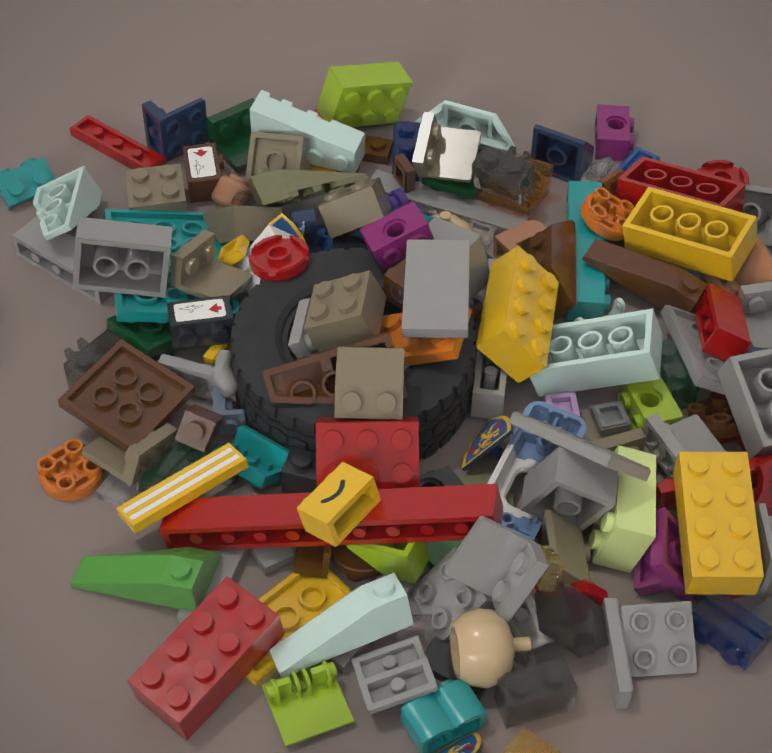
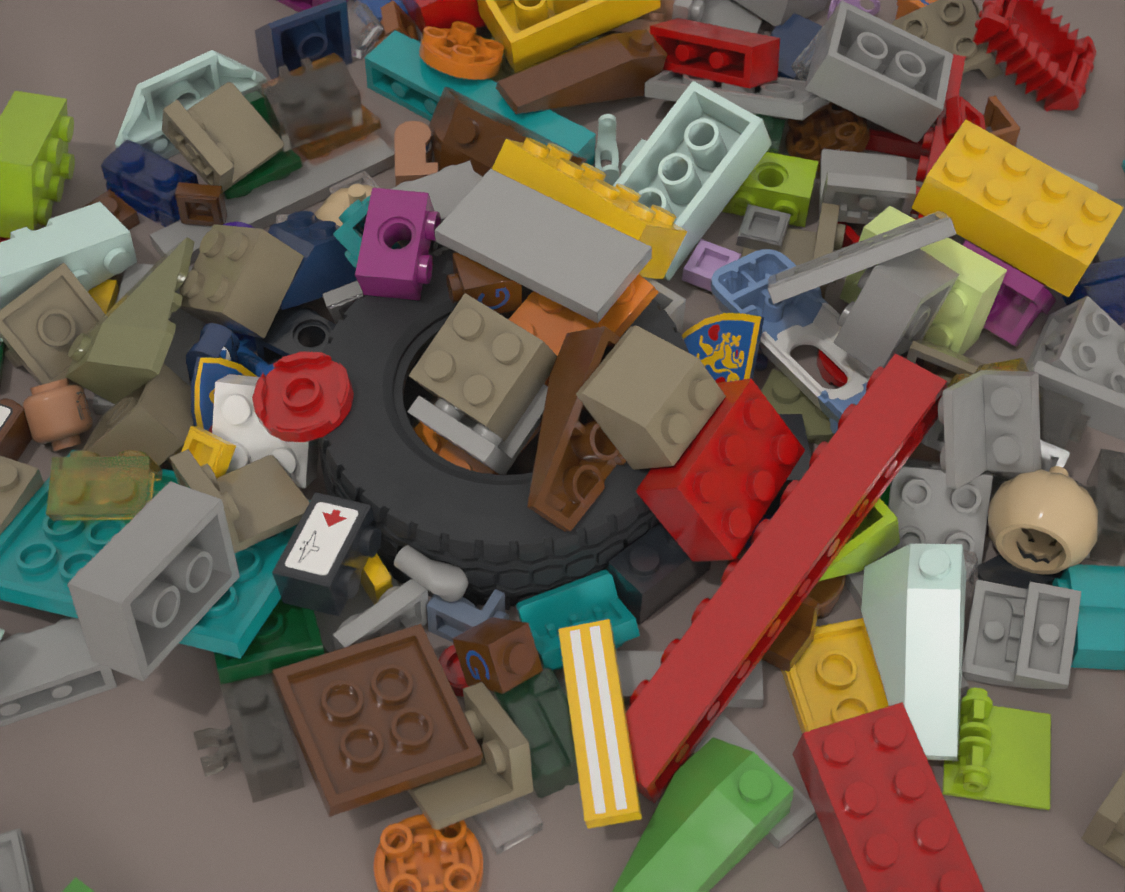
camera: 60 degrees left, 5 degrees up
(188, 222) = (101, 486): none -> clear yellow bracket
(339, 504) = (807, 536): yellow brick -> none

